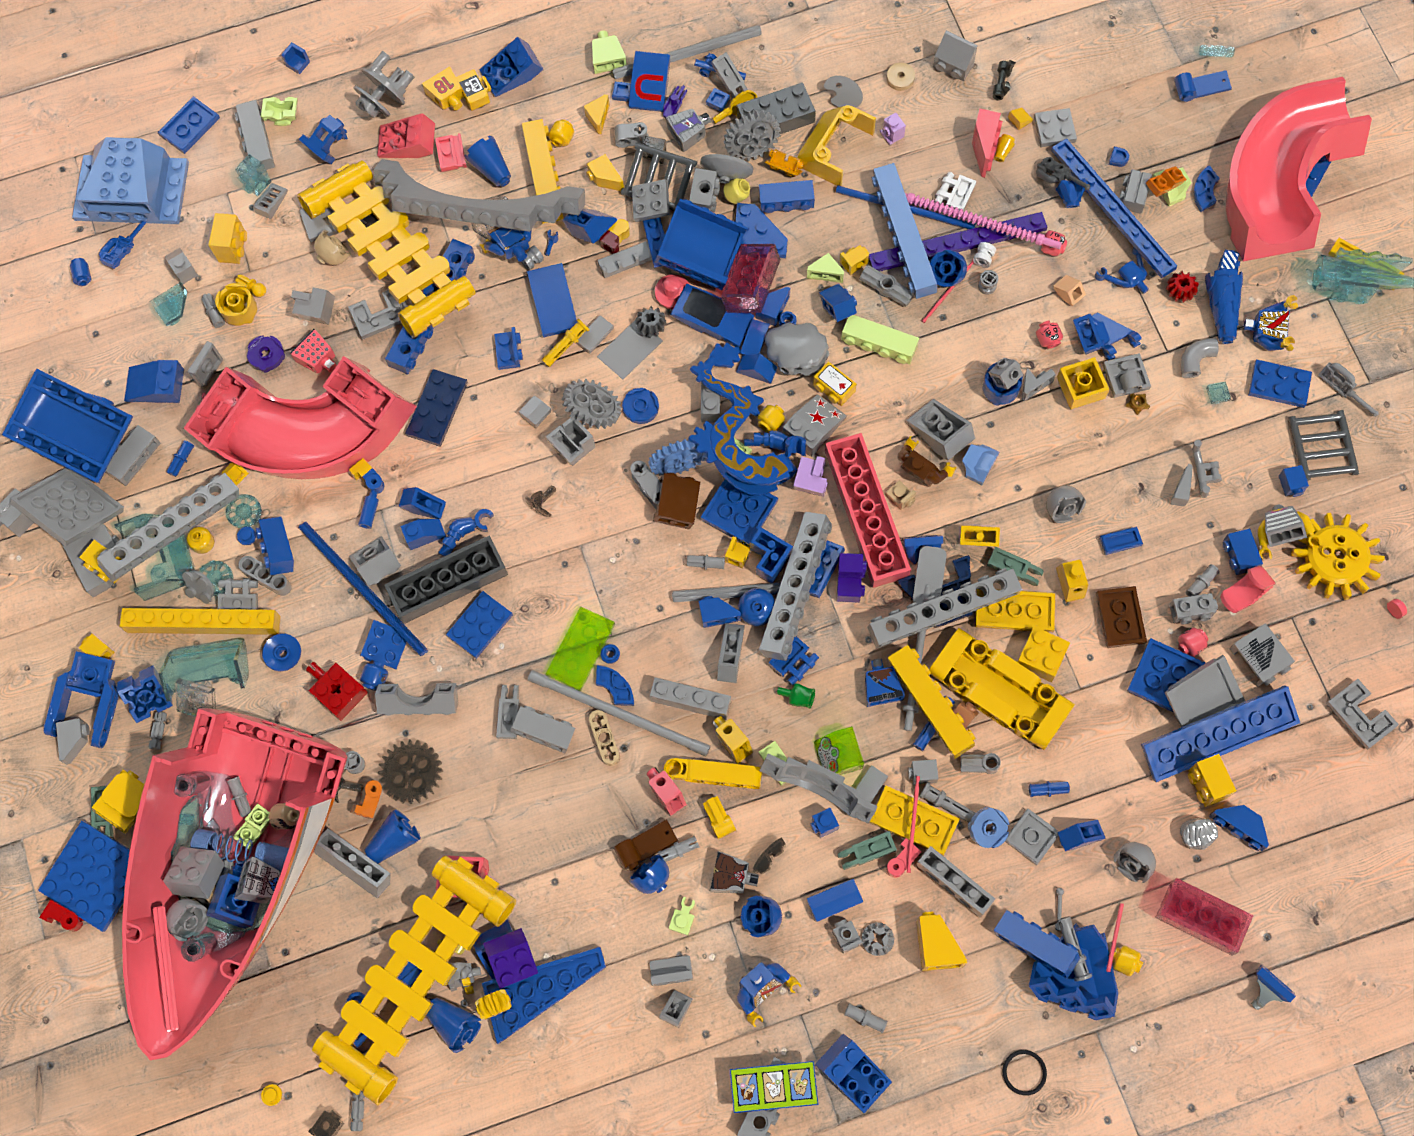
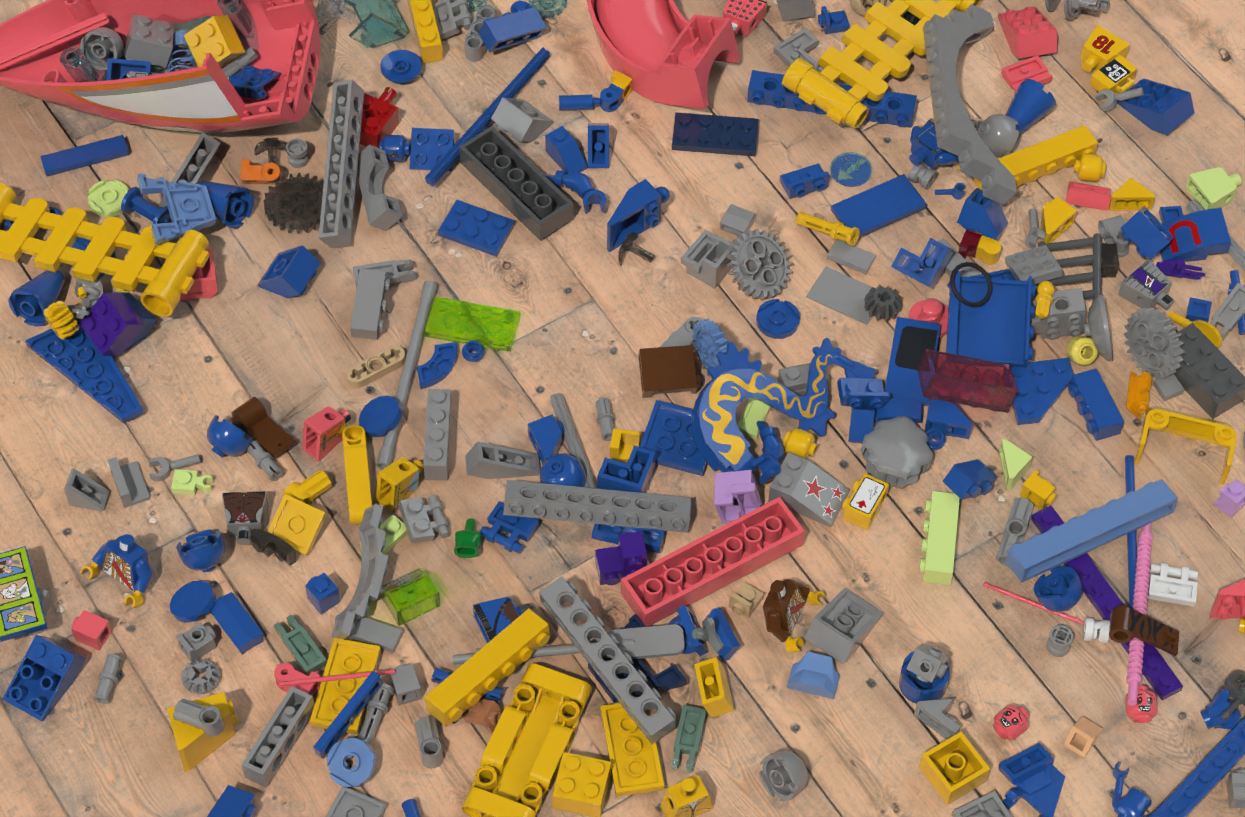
camera: 70 degrees right, 15 degrees down
(219, 811) = (215, 37): none -> yellow brick
(267, 786) = (251, 80): none -> blue hinge
(293, 960) = (84, 155): none -> blue tile
(345, 283) = (833, 22): none -> blue bracket
(350, 944) = (106, 197): none -> yellowish green tile
(380, 908) = (134, 201): none -> blue hose
(389, 721) = (341, 164): none -> light grey brick
(398, 868) = (187, 205): none -> medium blue wing
(485, 793) = (290, 272): none -> blue slope
(487, 988) = (78, 311): none -> light grey axle
(498, 88) = (1112, 99): none -> light grey piece
(504, 311) = (851, 169): none -> clear light blue piece
(506, 481) = (636, 212): none -> blue slope
(513, 185) = (999, 133): none -> light grey cylinder
(584, 143) = (1088, 195): none -> coral slope
(614, 195) = (1035, 231): none -> light grey piece
(629, 279) = (928, 266): none -> blue brick
(646, 109) = (1146, 233): none -> blue slope
(660, 742) = (380, 416): none -> blue tile
(662, 927) = (165, 466): none -> light grey piece
(667, 256) = (952, 284): none -> black tyre
(691, 193) = (1044, 299): none -> yellow axle
(738, 358) = (862, 392): none -> blue bracket
(753, 832) = (297, 523): none -> yellow plate
(772, 732) = (417, 521): none -> light grey plate
(783, 143) = (1168, 387): none -> light grey tile
(808, 933) = (192, 601): none -> blue tile
(816, 1025) = (91, 630): none -> coral brick
(931, 522) = (718, 633): none -> piece
(944, 941) = (198, 716): none -> light grey piece
(951, 821) = (348, 714): none -> blue tile
(996, 224) = (1130, 624): none -> reddish brown door

